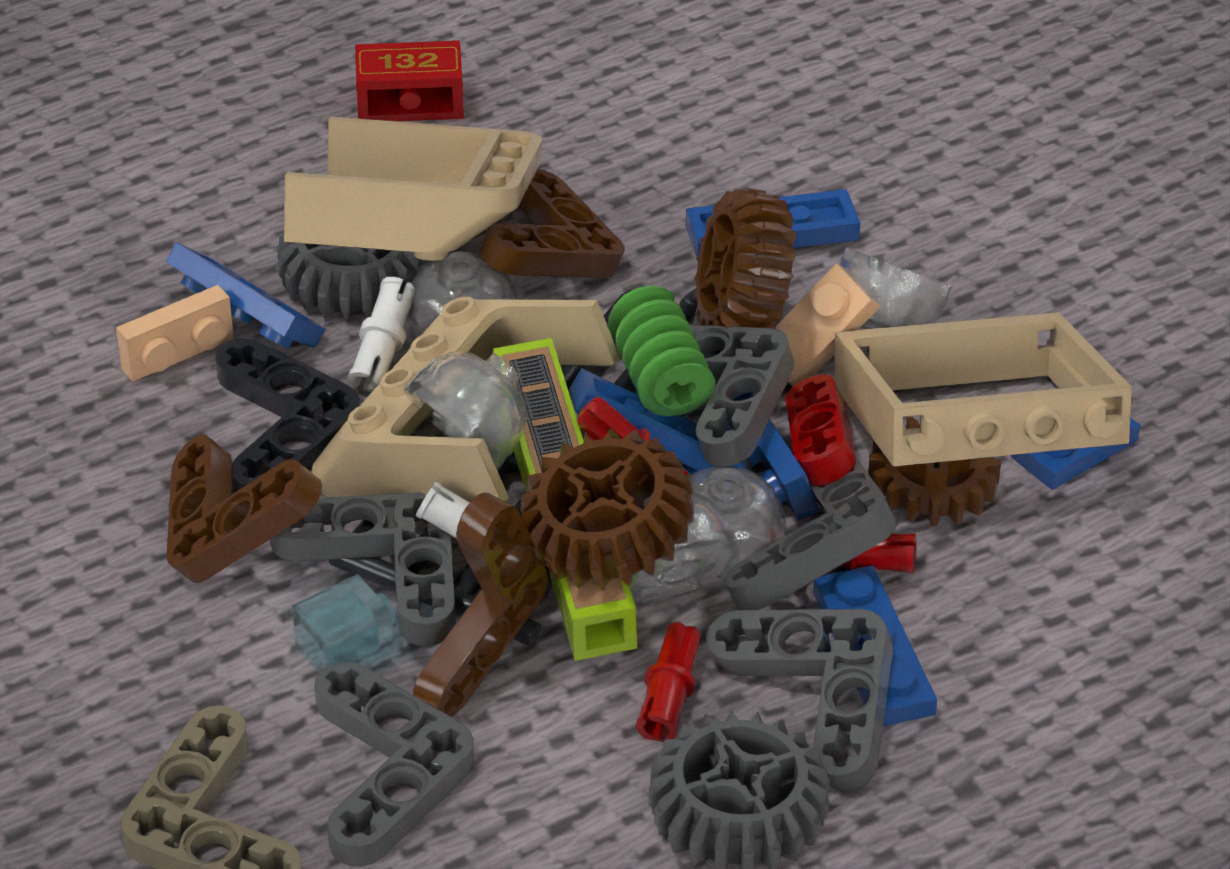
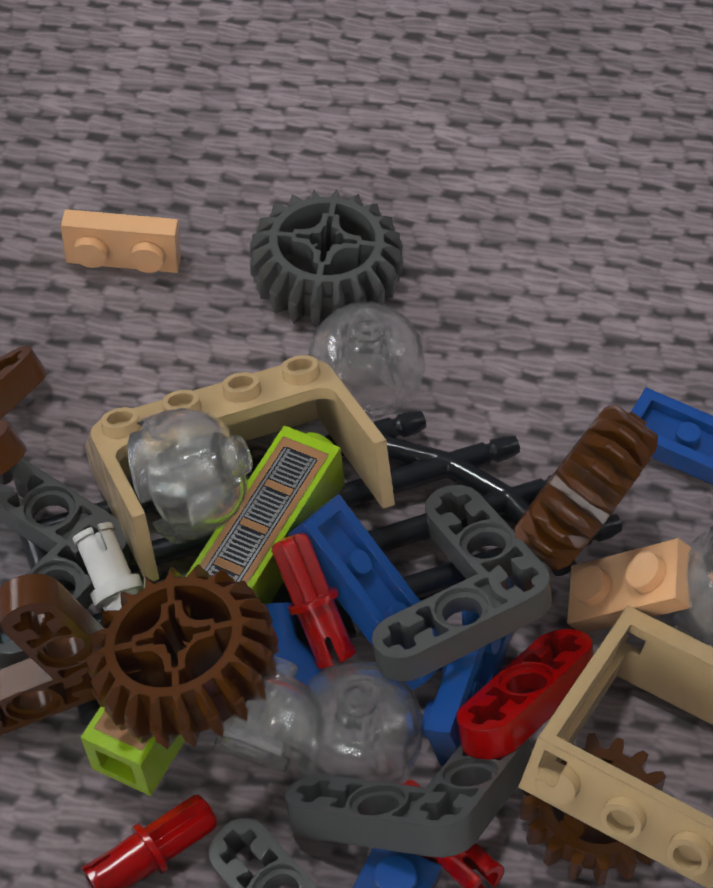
camera: 40 degrees right, 10 degrees up
(280, 321) = (208, 242): plate -> none
(299, 411) = (151, 373): black beam -> none
(382, 333) = (271, 343): white pin -> none
(409, 81) = (541, 121): red brick -> none
(409, 186) = (496, 239): tan windscreen -> none
(564, 241) = (507, 354): reddish brown beam -> none
(660, 352) = (418, 523): bright green piece -> none

